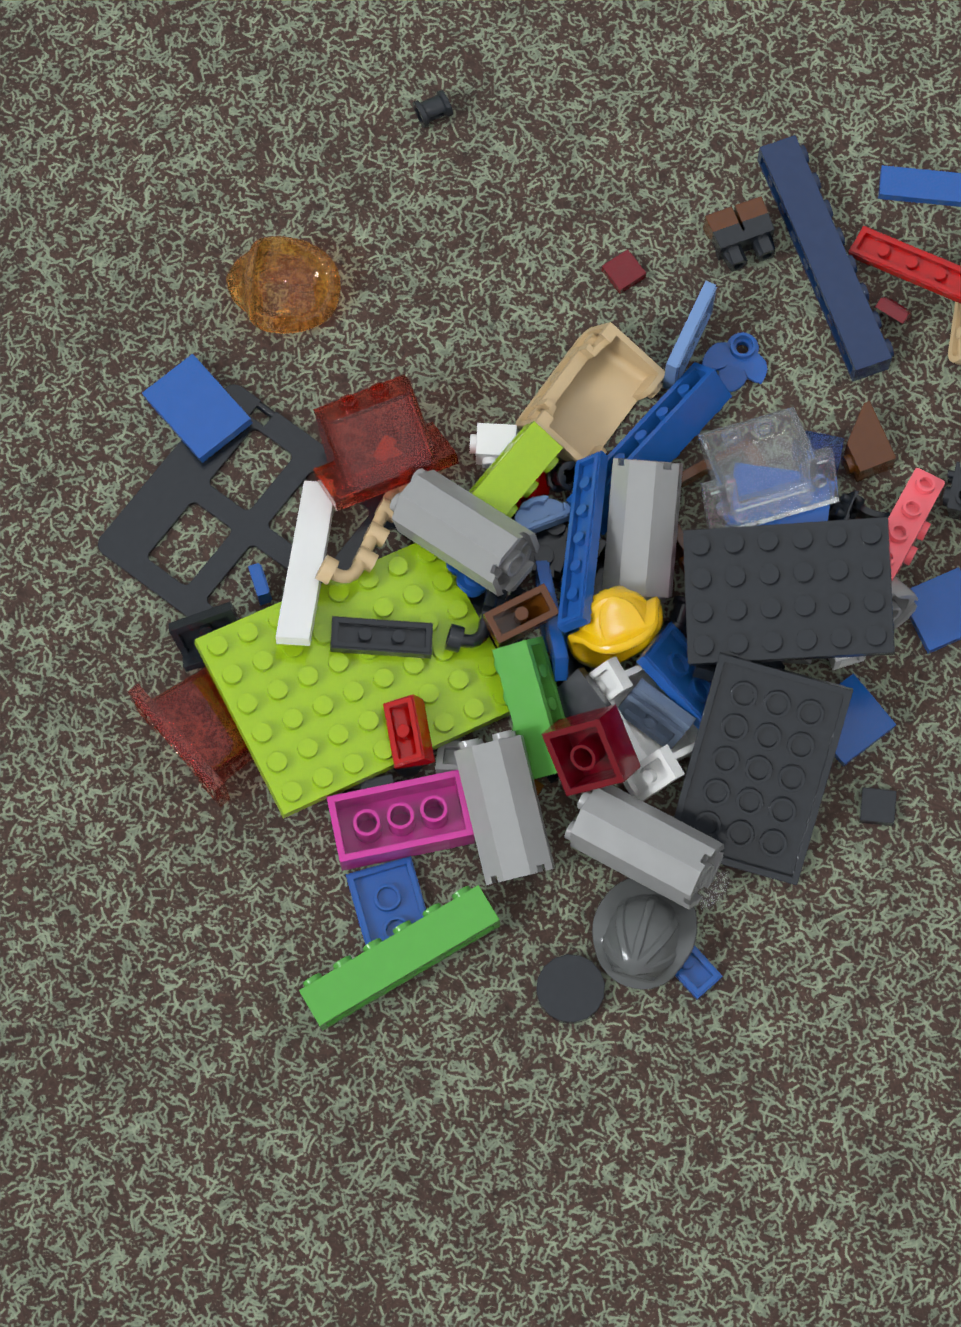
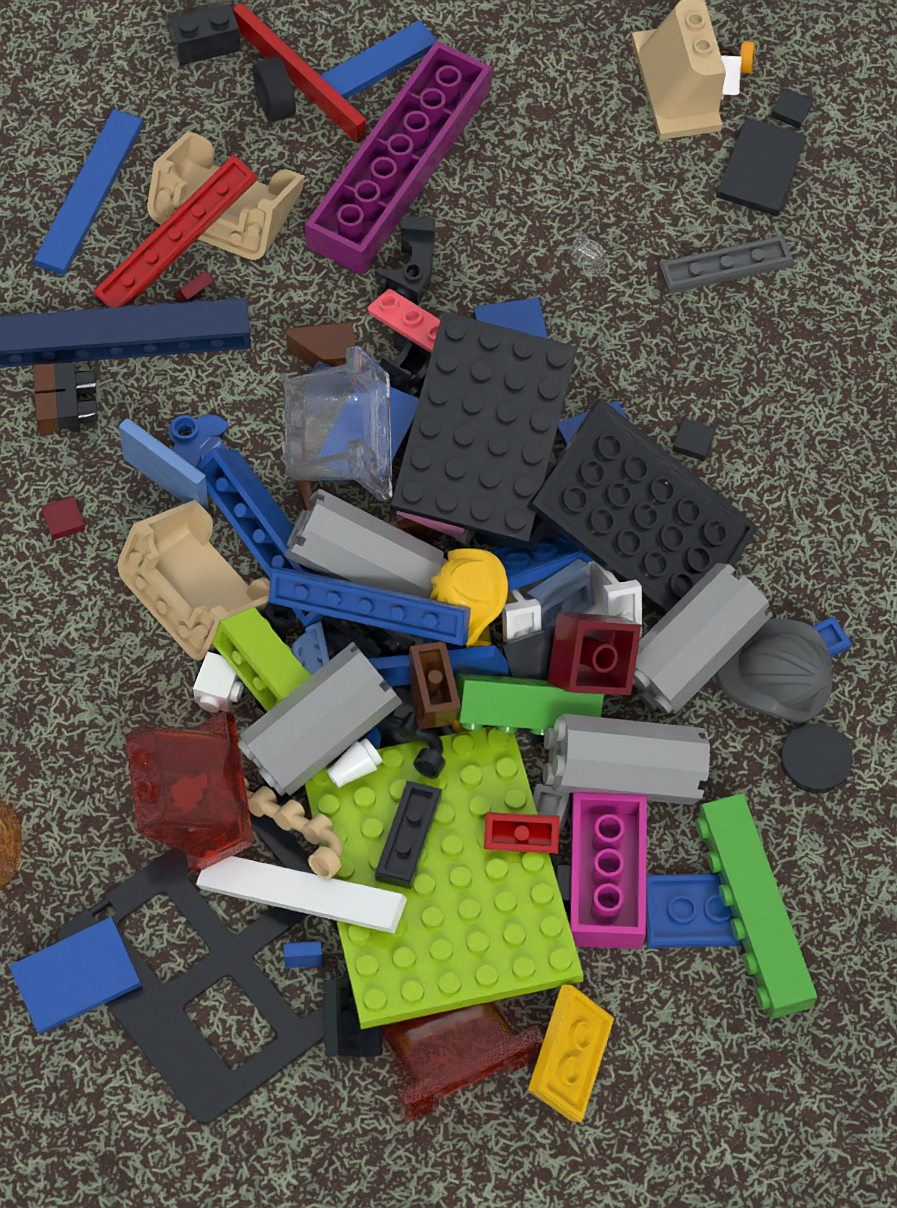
camera: 80 degrees left, 10 degrees down
(221, 826) = (571, 1053): none -> yellow tile
(439, 576) = (355, 763): none -> white cone

